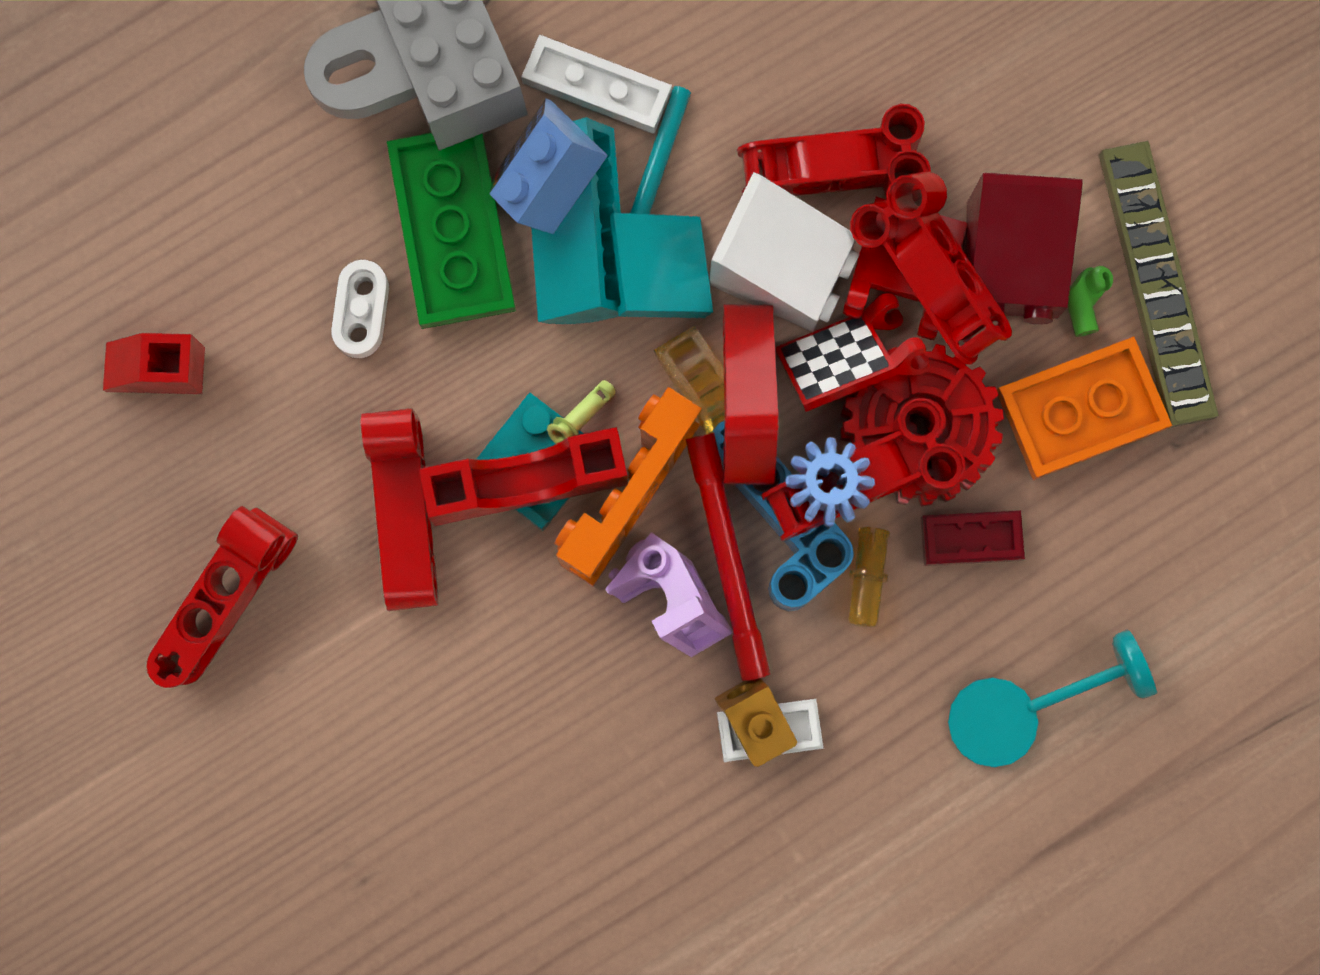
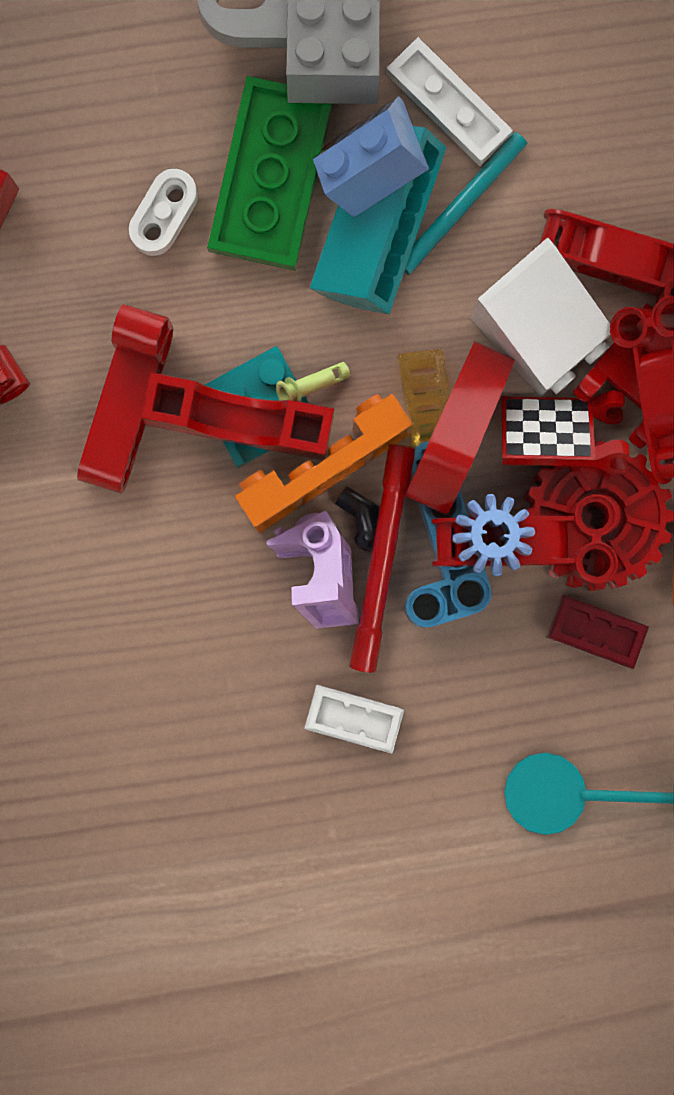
camera: 25 degrees right, 5 degrees up
(661, 266) = (434, 284): teal piece -> none
(693, 522) = (365, 513): none -> black arm
(757, 721) = (346, 706): pearl gold bracket -> none
(868, 577) = (494, 627): clear yellow axle -> none

